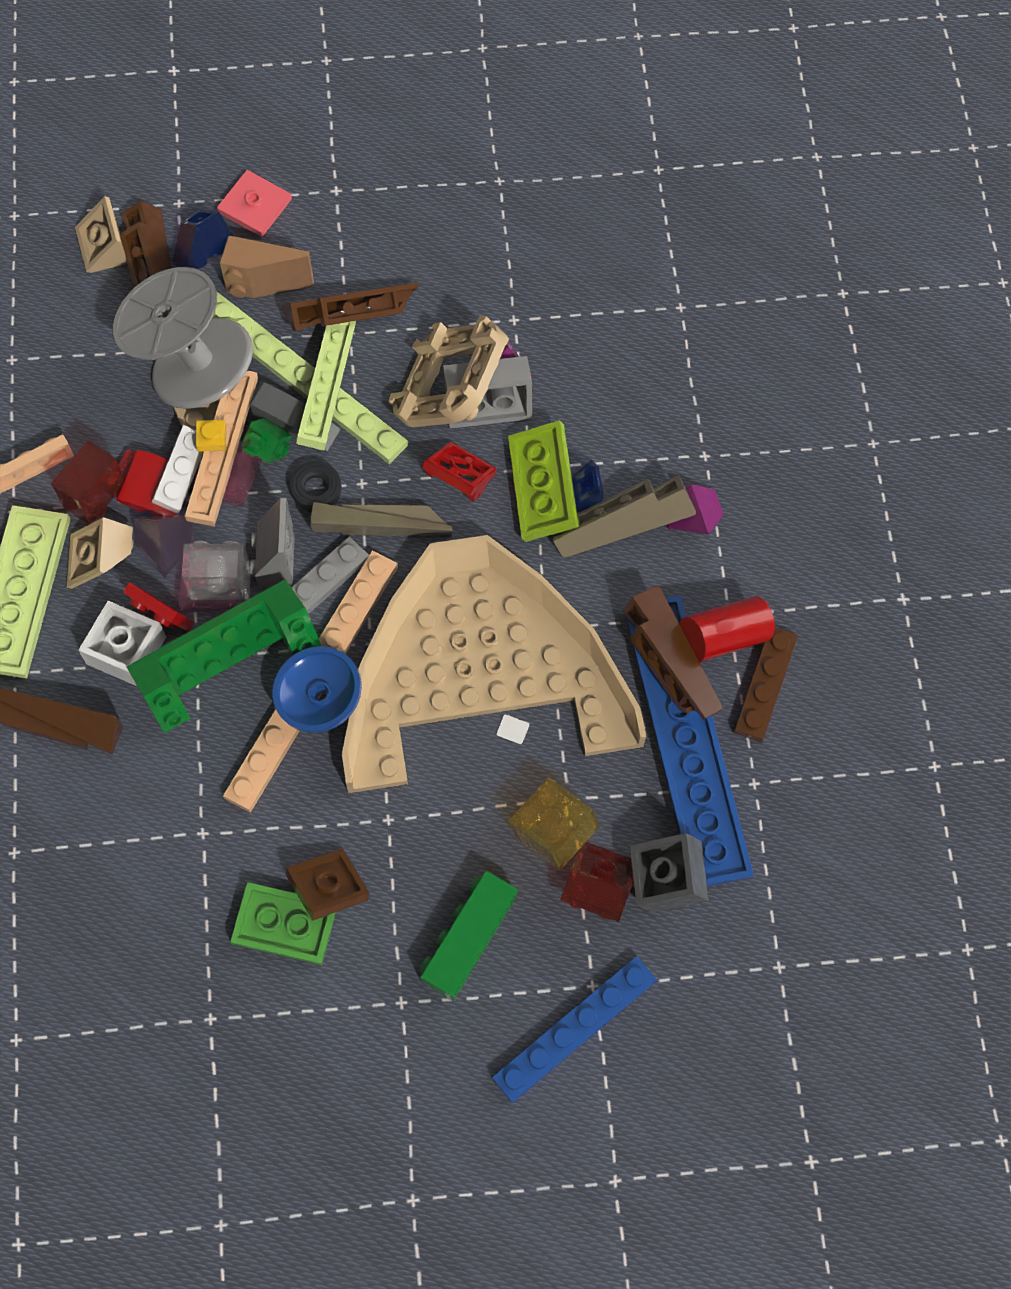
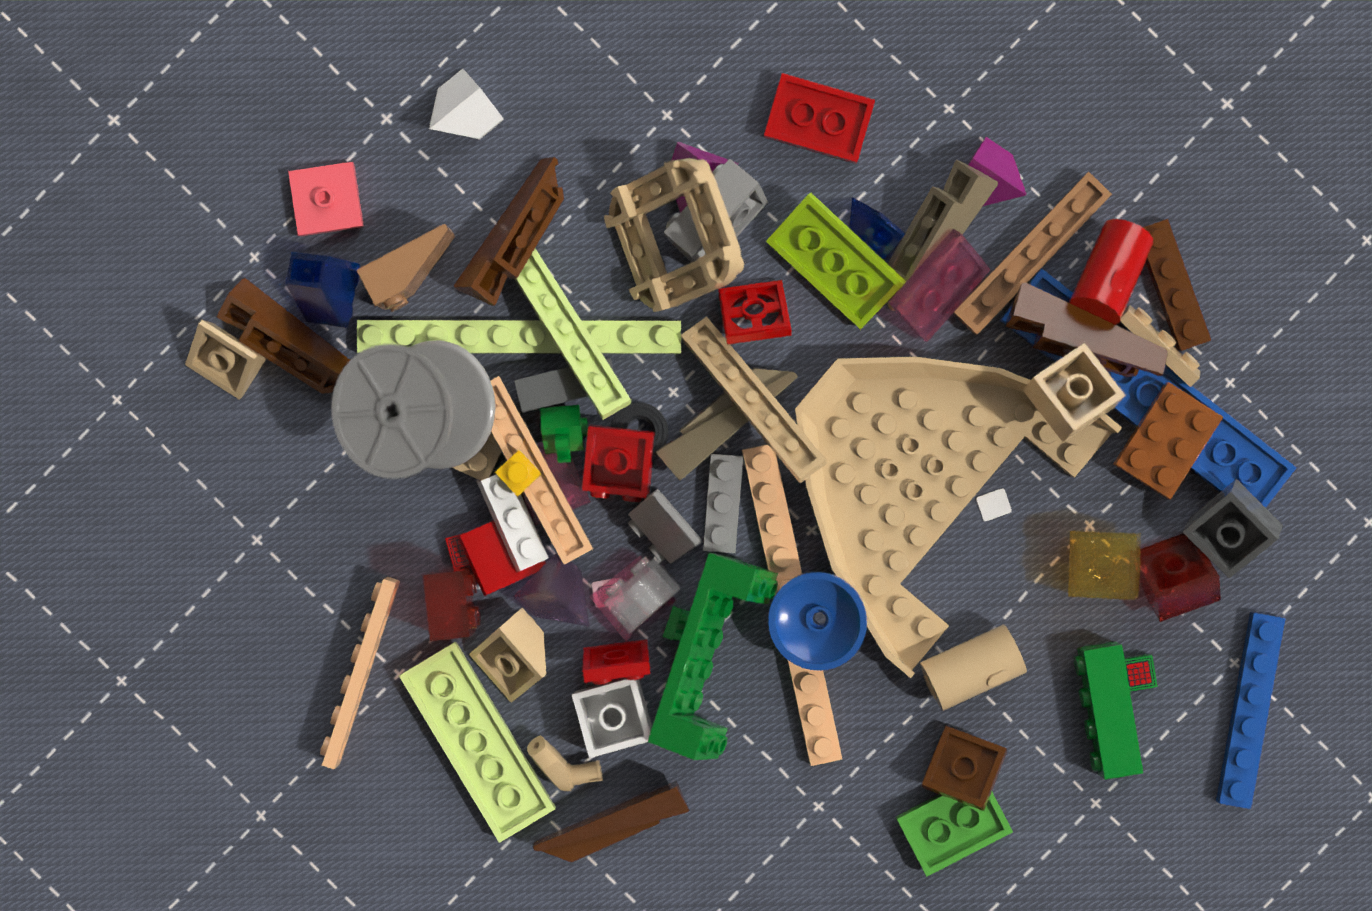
camera: 40 degrees left, 20 degrees up
(53, 652) = (557, 769): none -> tan arm
(282, 478) = (618, 462): none -> red plate
(388, 218) = (463, 108): none -> white slope
(396, 818) = (973, 667): none -> tan piece
(407, 516) = (753, 400): none -> tan plate
(513, 930) = (1141, 672): none -> tile
(599, 548) = (939, 285): none -> clear pink plate
(610, 392) = (819, 118): none -> red plate
(629, 675) = (1073, 392): none -> tan brick
(673, 776) = (1168, 440): none -> dark orange plate
(687, 582) = (1032, 253): none -> medium nougat plate
(727, 736) = (1183, 365): none -> tan plate

